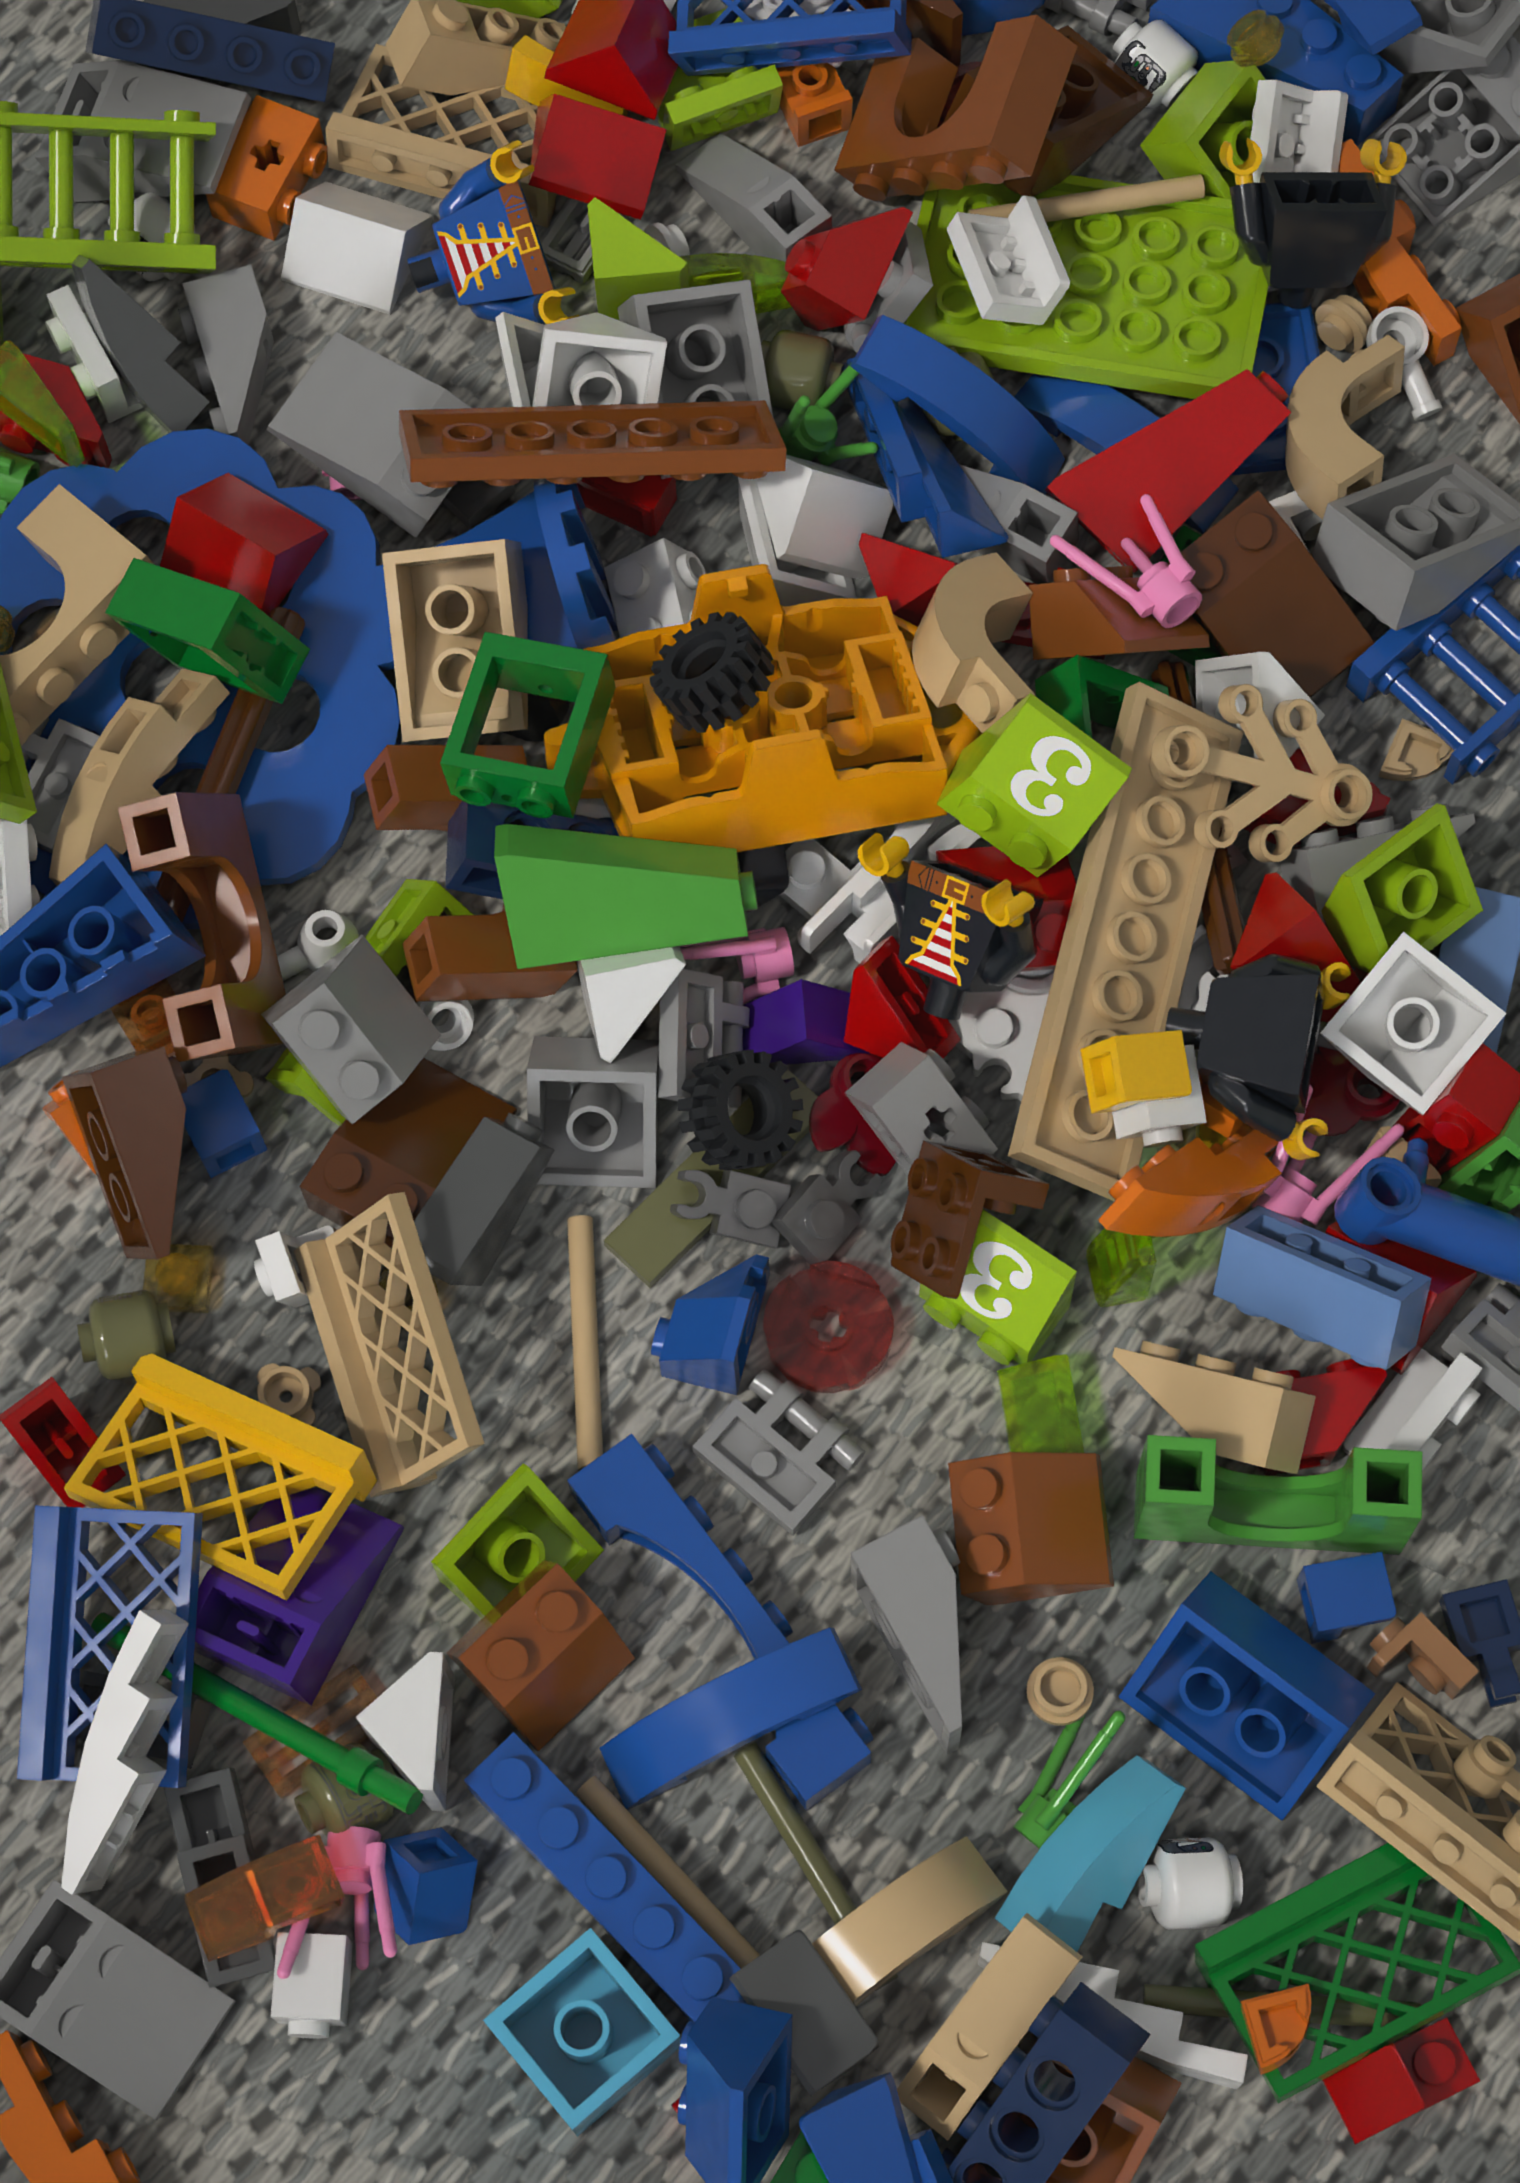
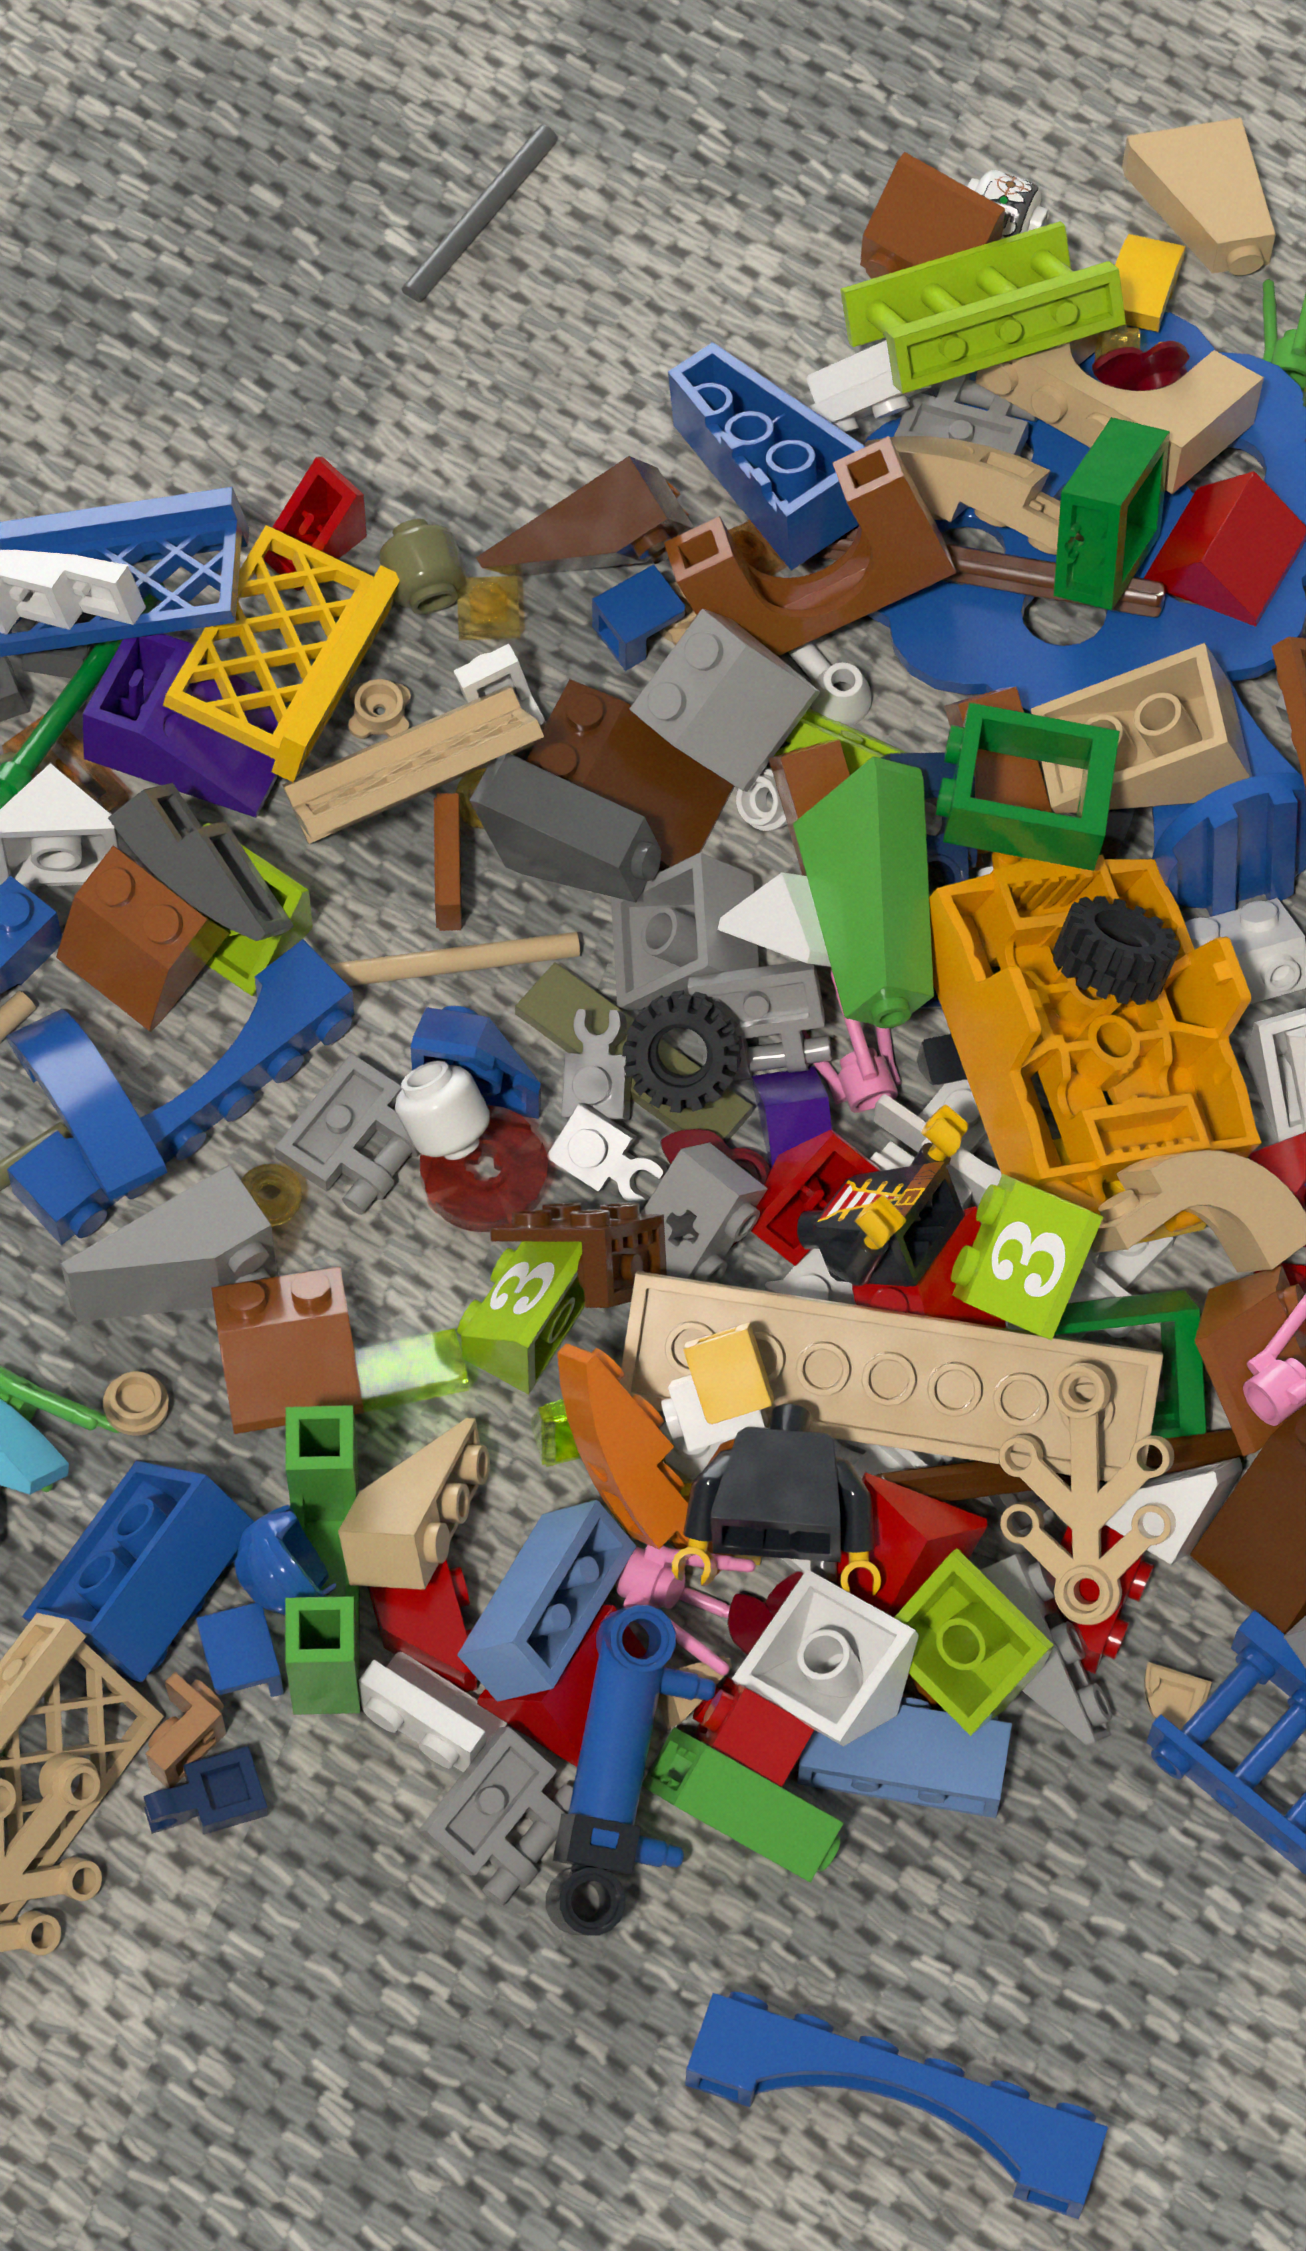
camera: 80 degrees right, 5 degrees down
(27, 597) = (1142, 371): none -> dark red plate
(486, 1569) = (200, 862): none -> dark grey slope
(498, 1336) = (447, 862): none -> dark orange tile
(788, 1346) = (442, 1110): none -> white head
(821, 1556) = (289, 1200): none -> clear yellow plate
(1279, 1540) = (279, 1561): none -> blue hair

